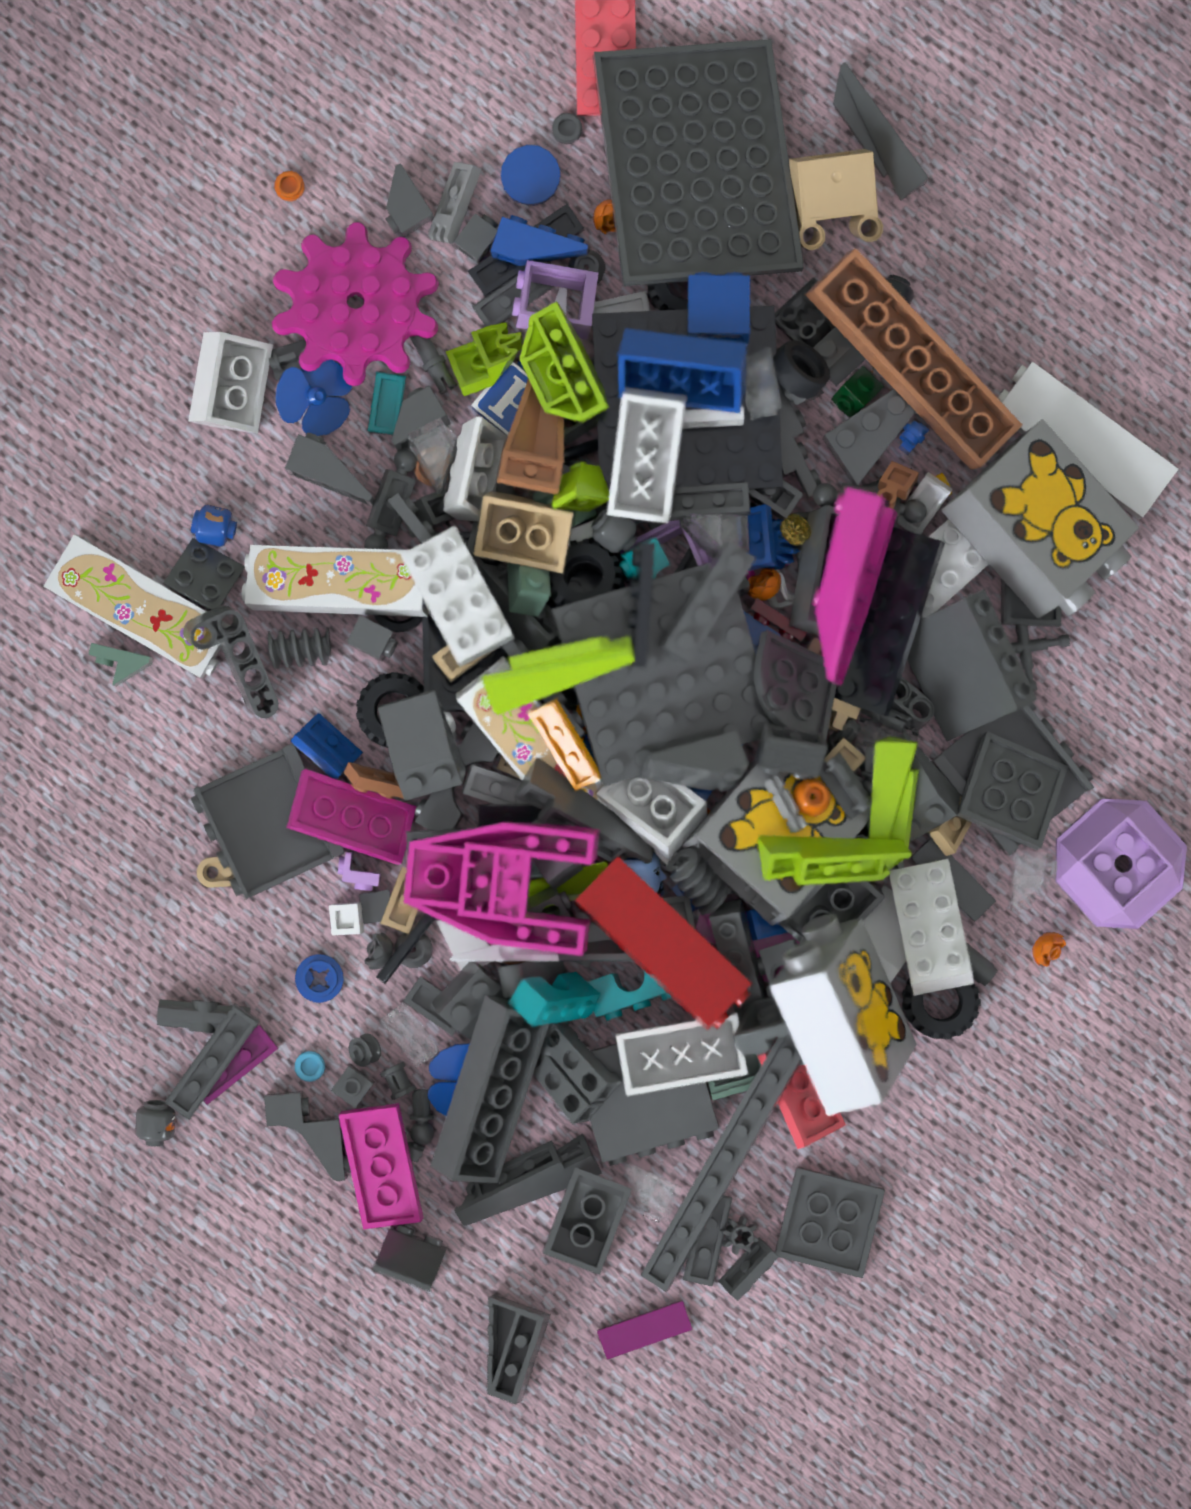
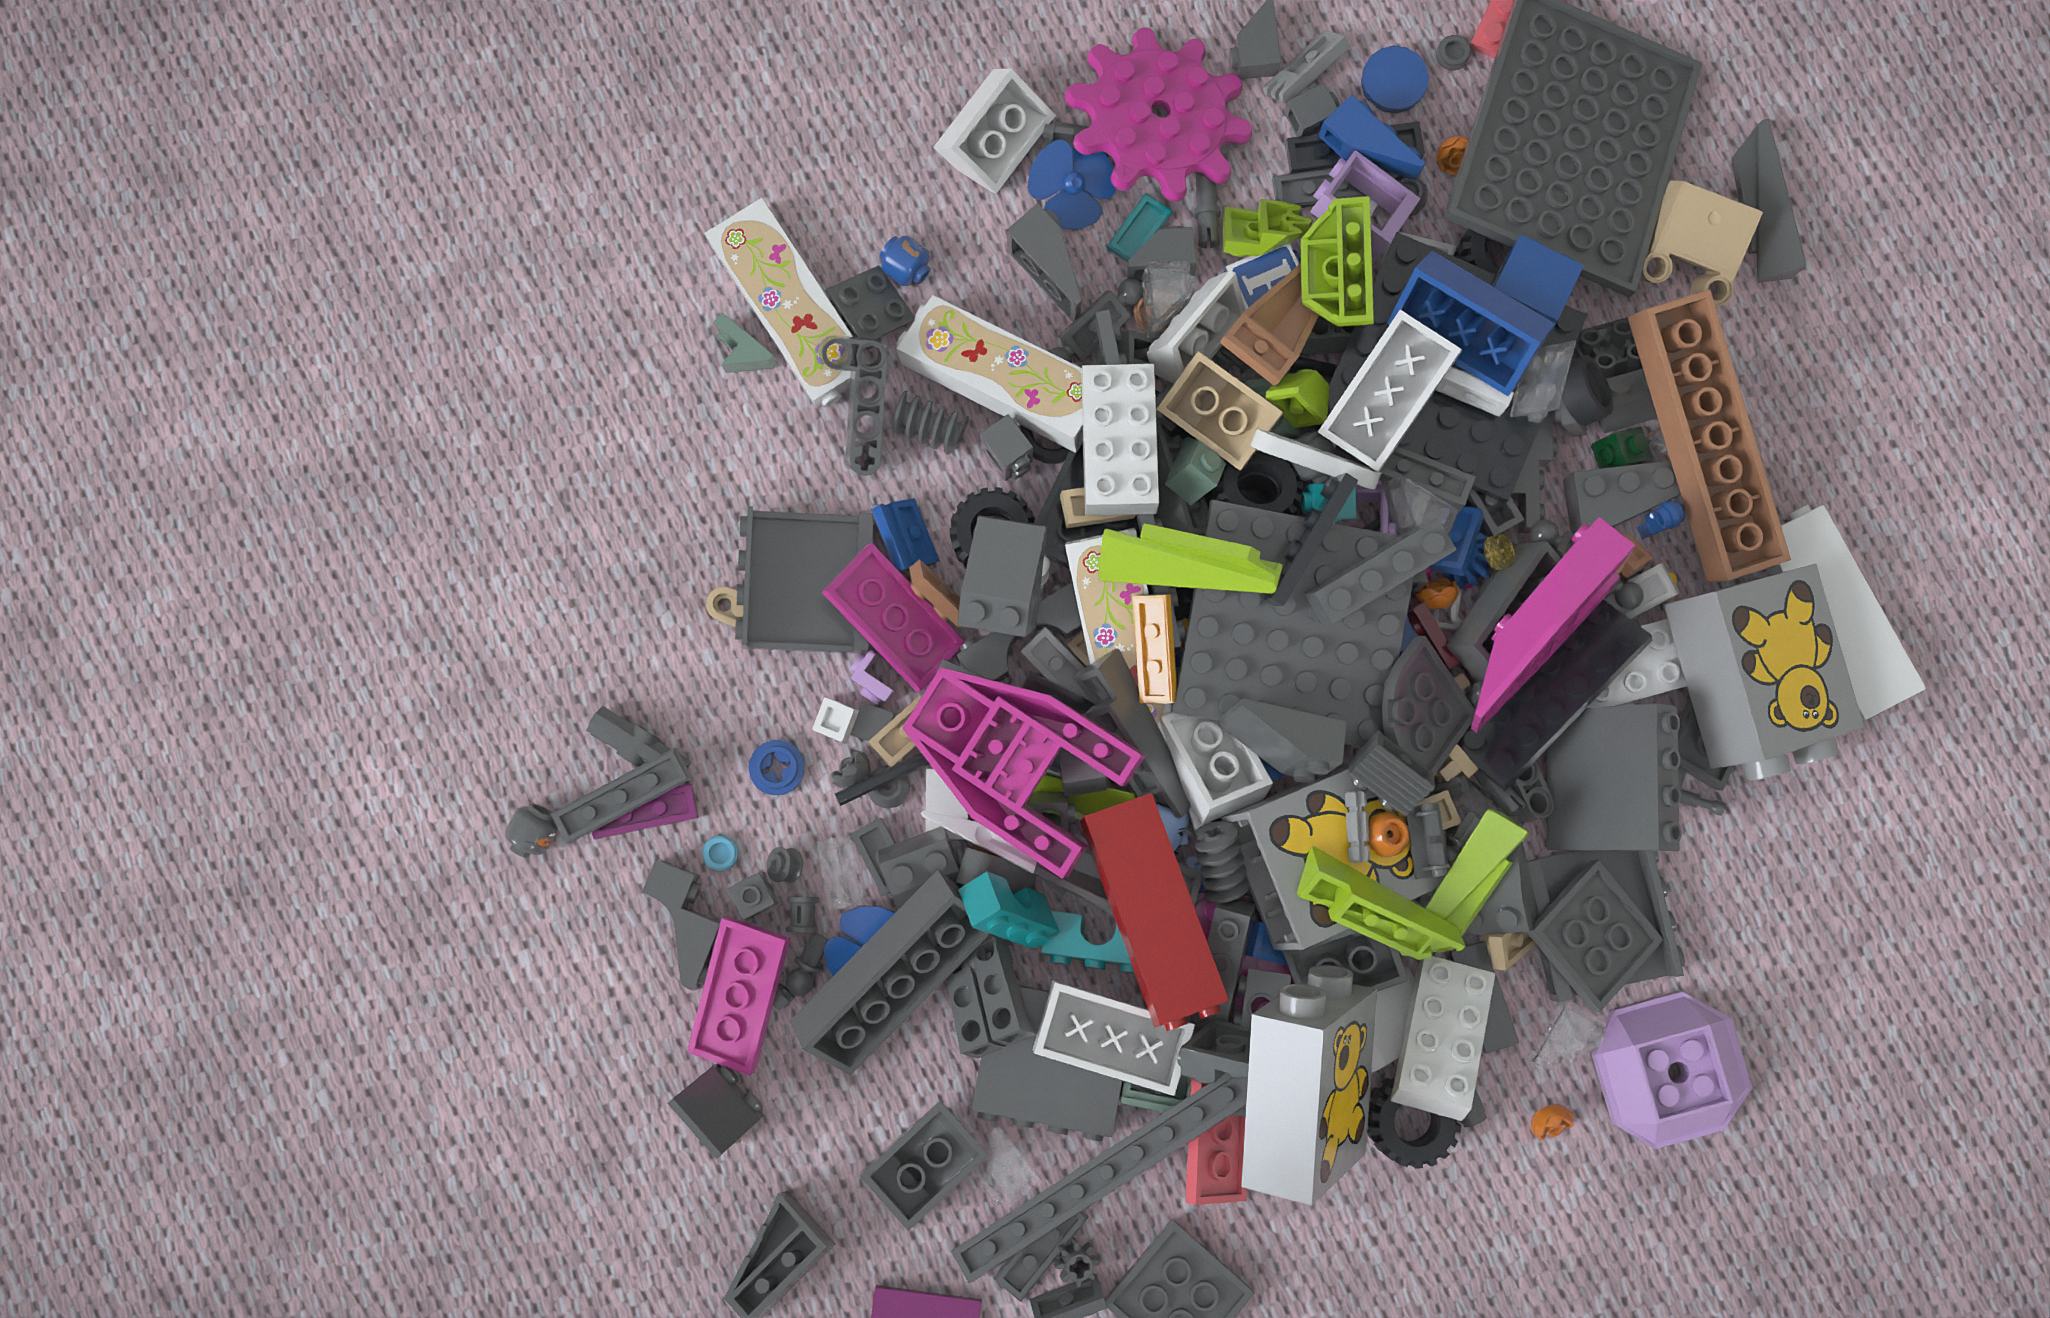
camera: 25 degrees right, 5 degrees down
(527, 1179) = (884, 1086): dark grey wedge -> none
(614, 537) = (1313, 458): none -> white beam

